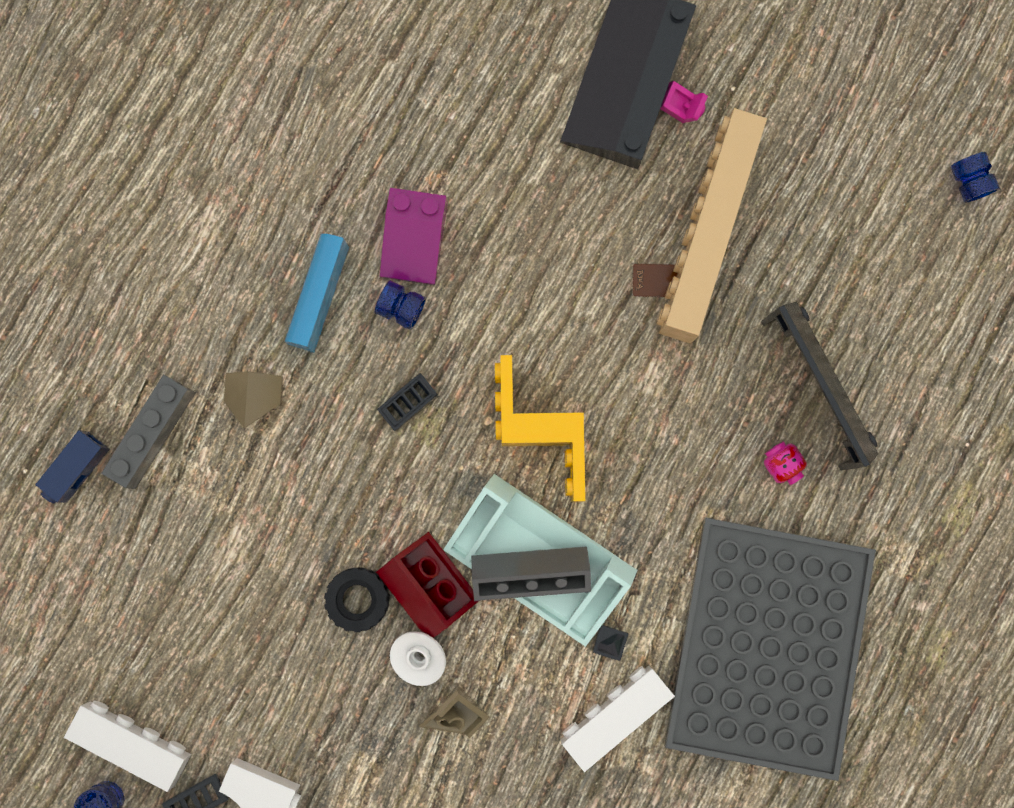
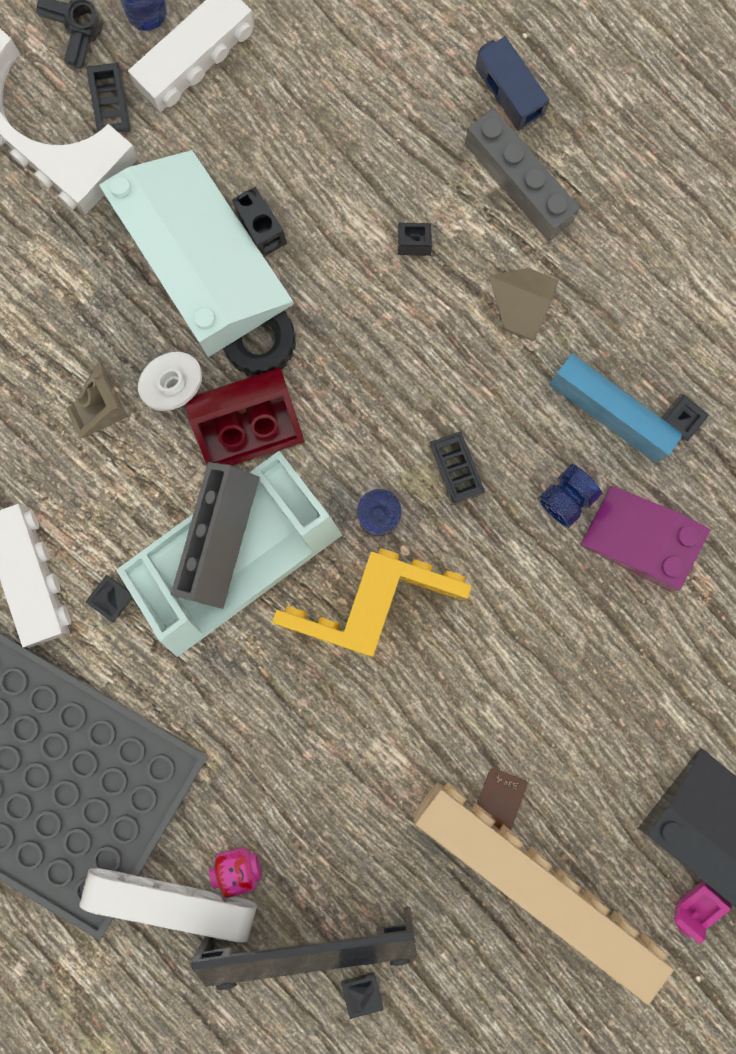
camera: 110 degrees right, 0 degrees up
(231, 501) = (414, 239): none -> black tile
(258, 634) = (259, 221): none -> black leg
(299, 677) = (197, 248): none -> light aqua slope
(305, 237) = (685, 416): none -> black tile
(466, 450) = (379, 513): none -> clear blue wheel
(829, 506) = (167, 905): none -> white beam
(840, 334) = (362, 995): none -> black tile

